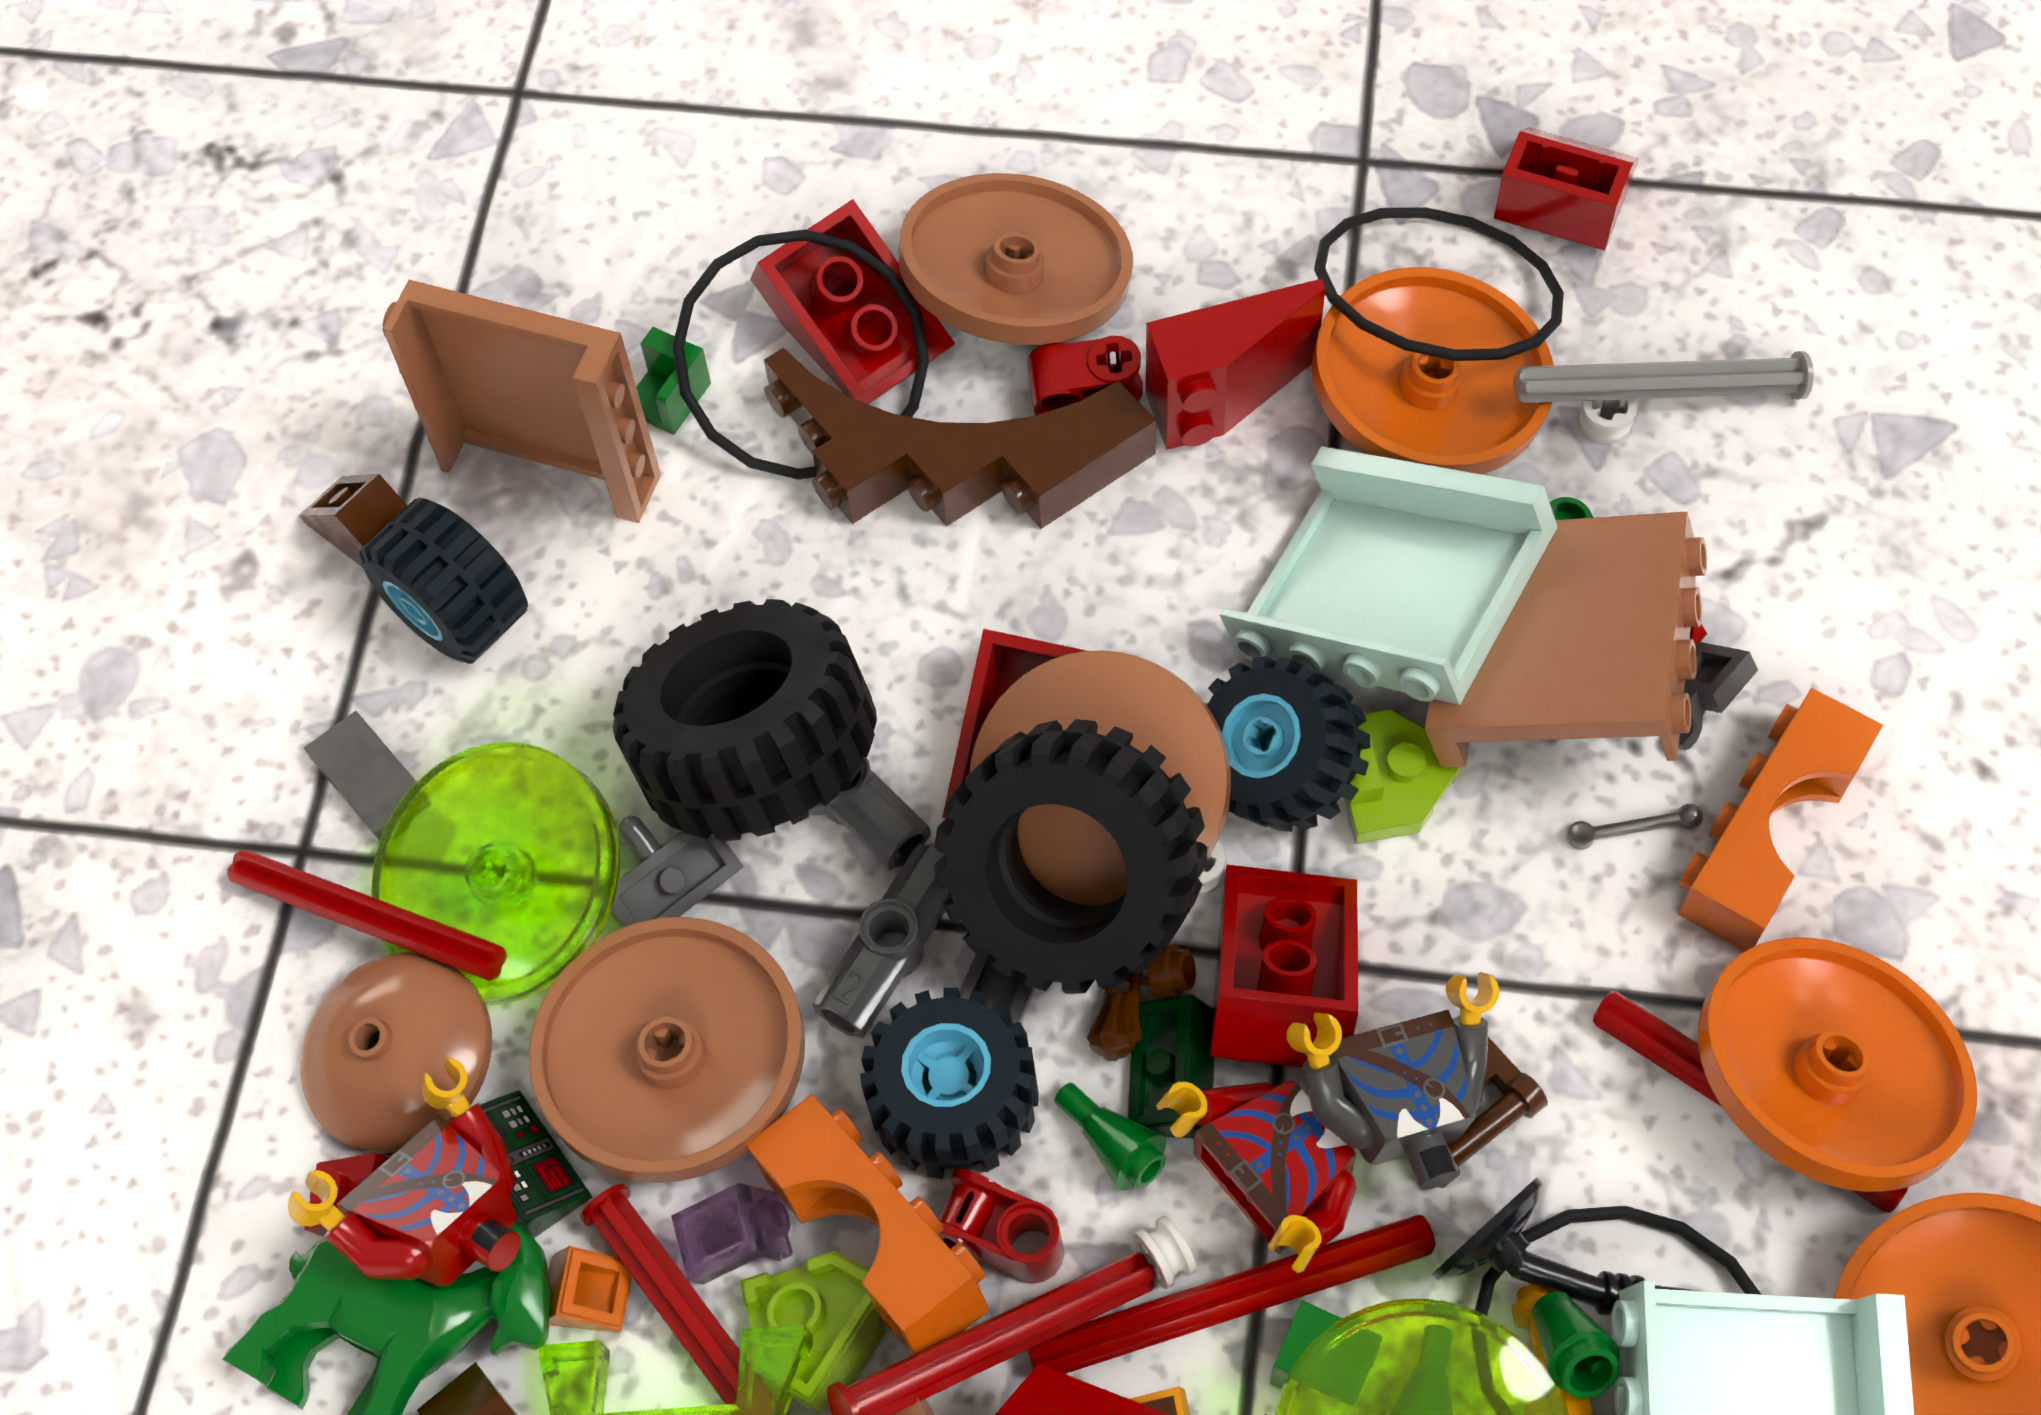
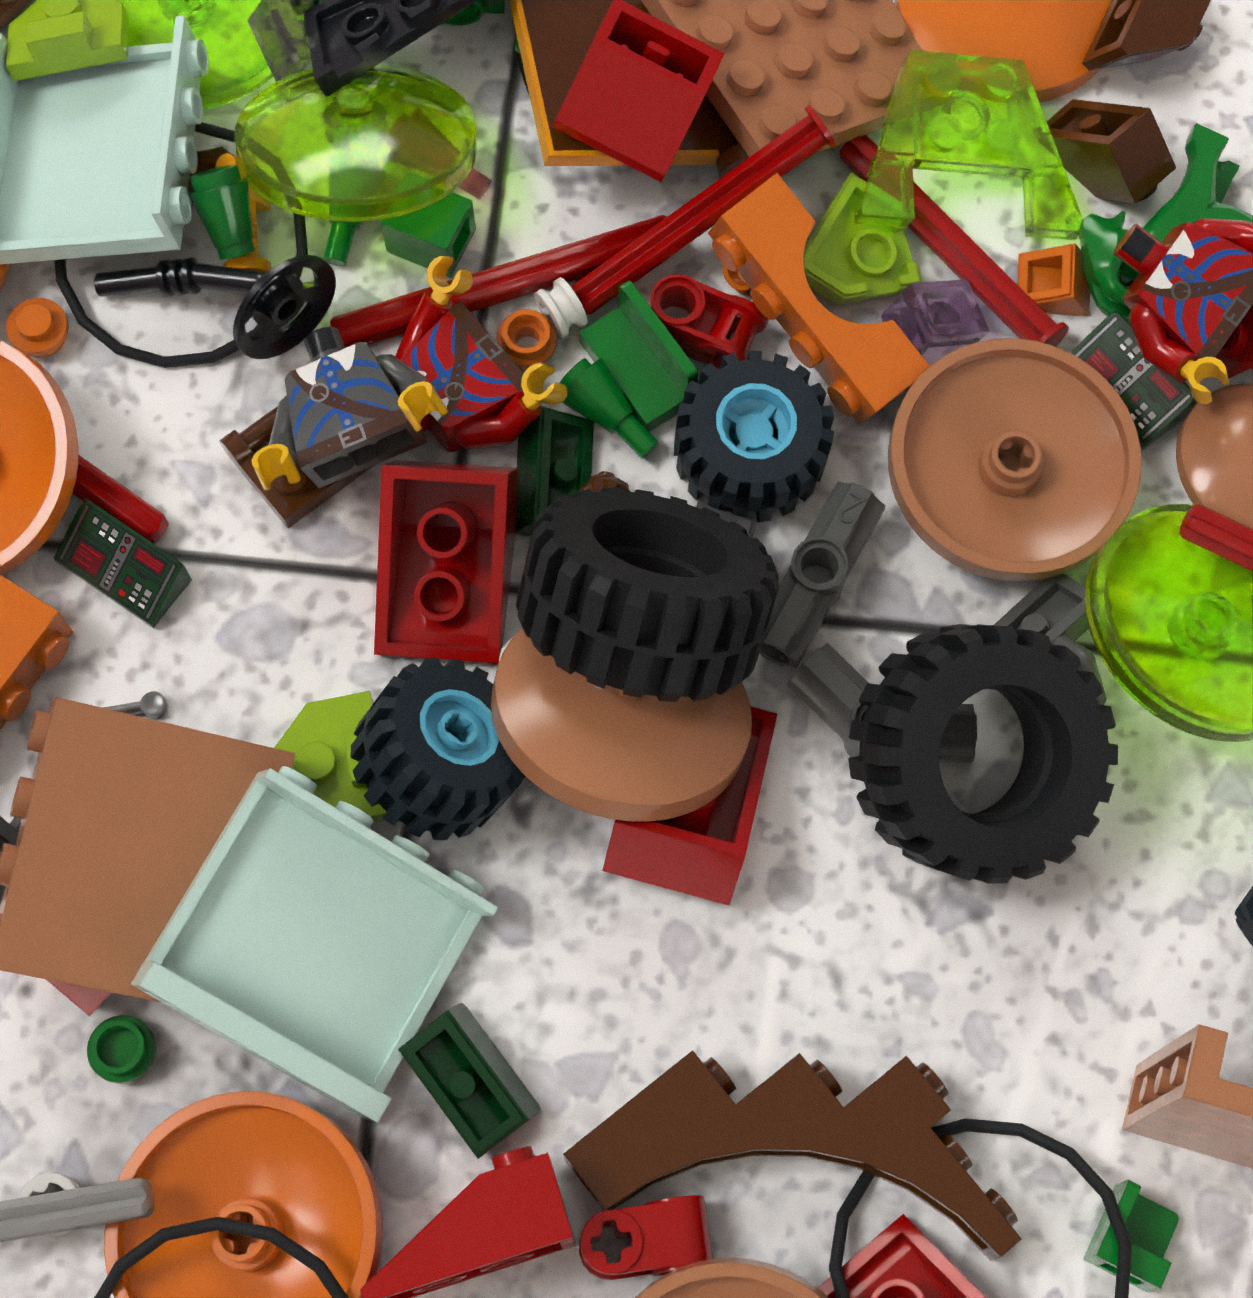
camera: 175 degrees right, 10 degrees up
(1076, 1188) = (641, 357): none -> green panel
(1211, 1204) = (527, 323): none -> orange plate
(1239, 502) = (469, 1079): none -> dark green slope
(1627, 964) = (121, 564): none -> slope
(1781, 1246) = (37, 327): none -> orange plate

